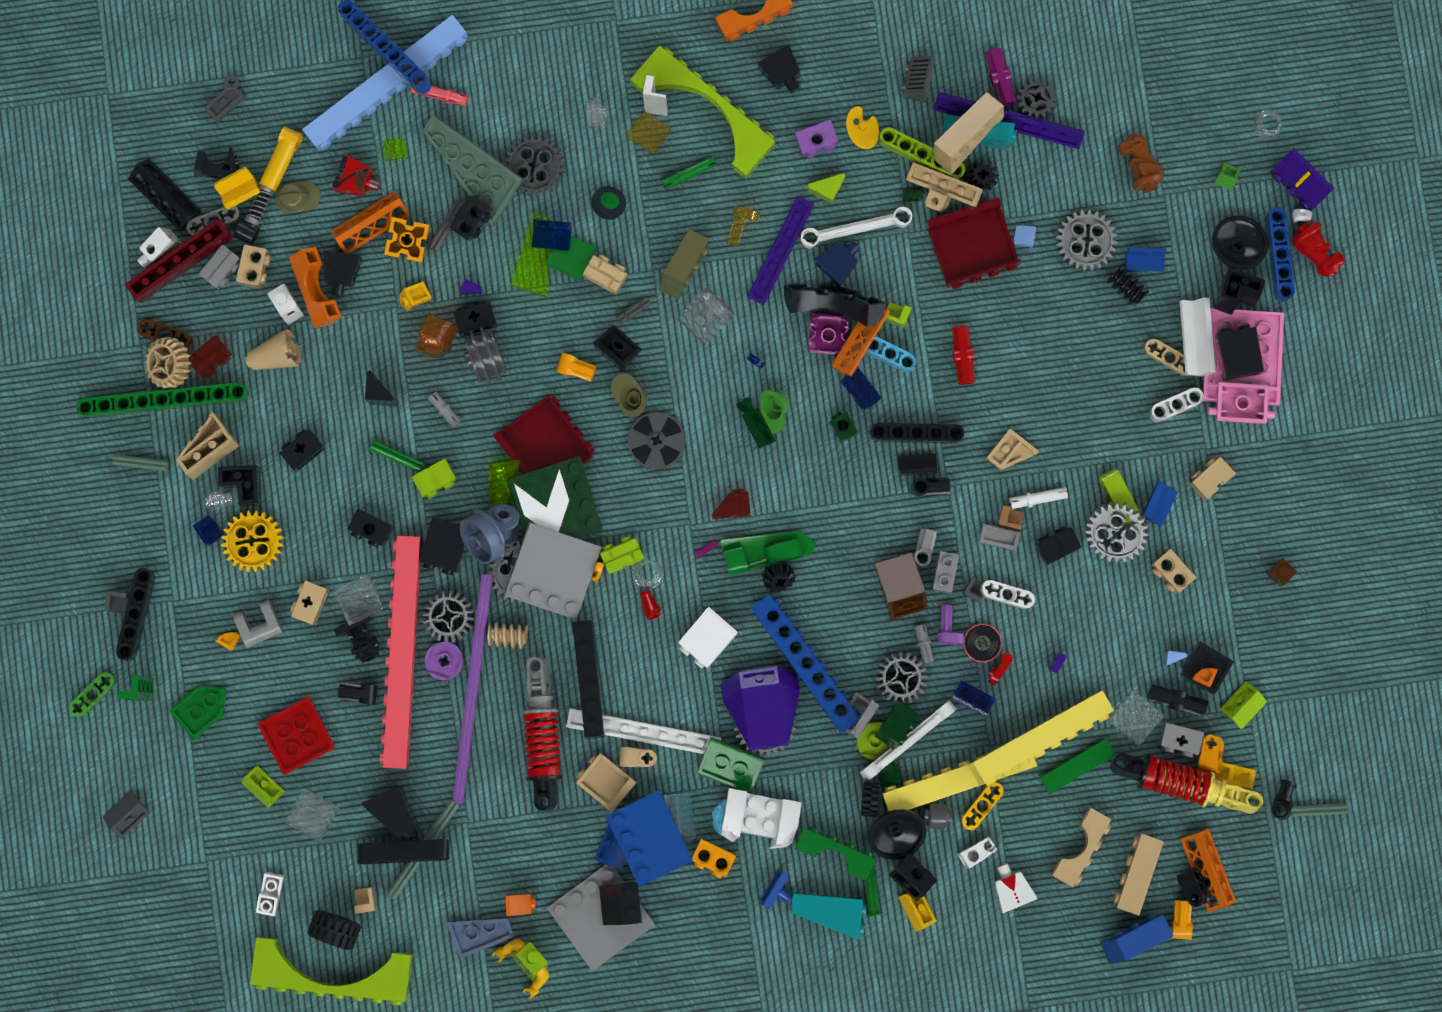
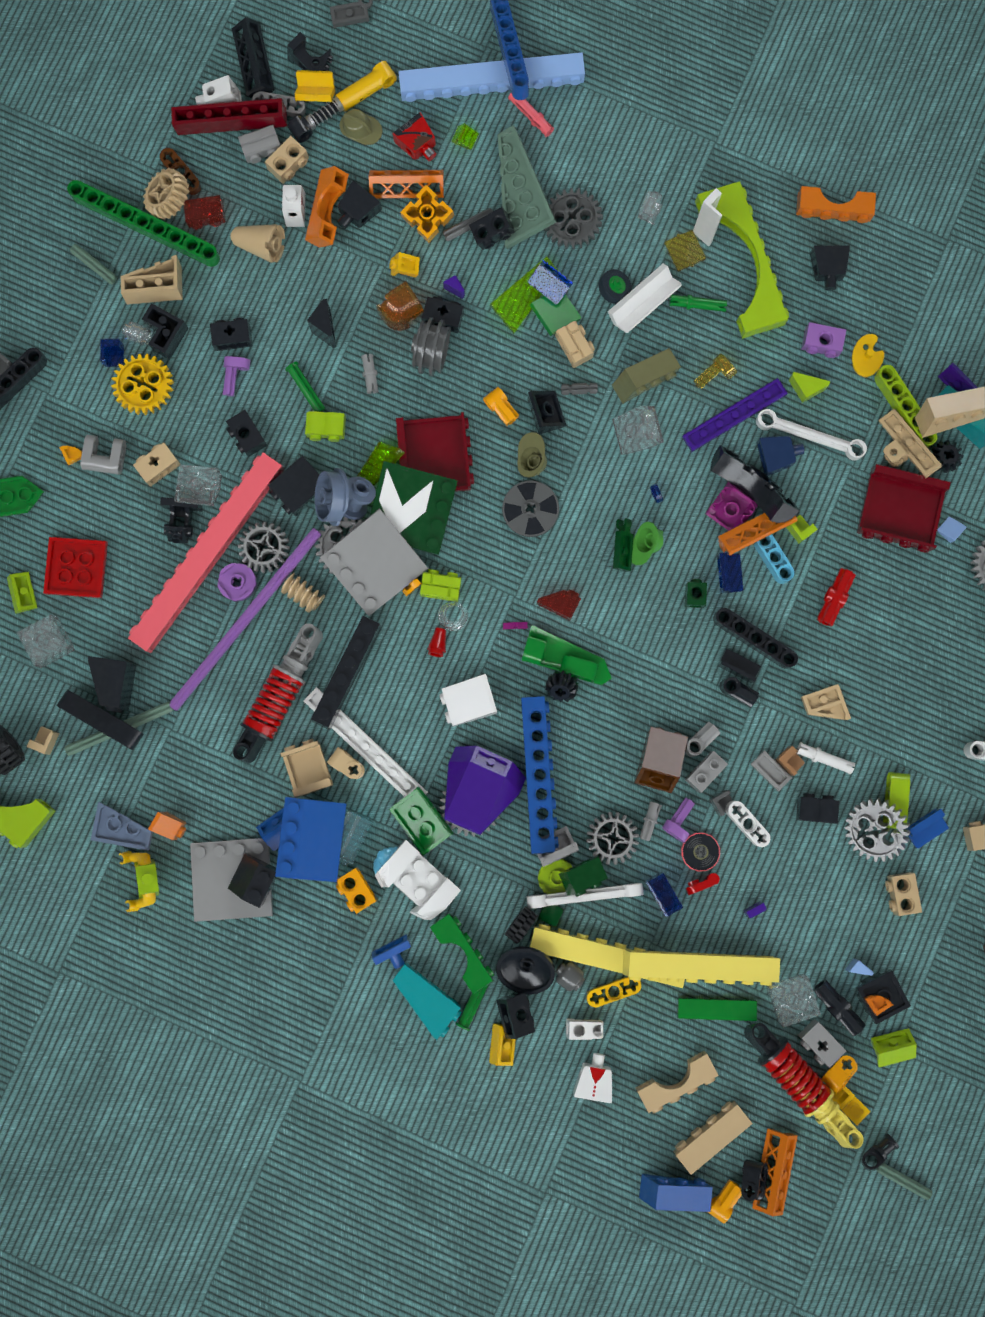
camera: 30 degrees right, 0 degrees up
(320, 477) = (233, 364): none -> medium lavender piece
(362, 693) = (152, 566): black piece -> none
(640, 198) = (644, 299): none -> white panel
(912, 194) = (875, 436): dark green slope -> none
(918, 78) = (943, 341): dark grey slope -> none

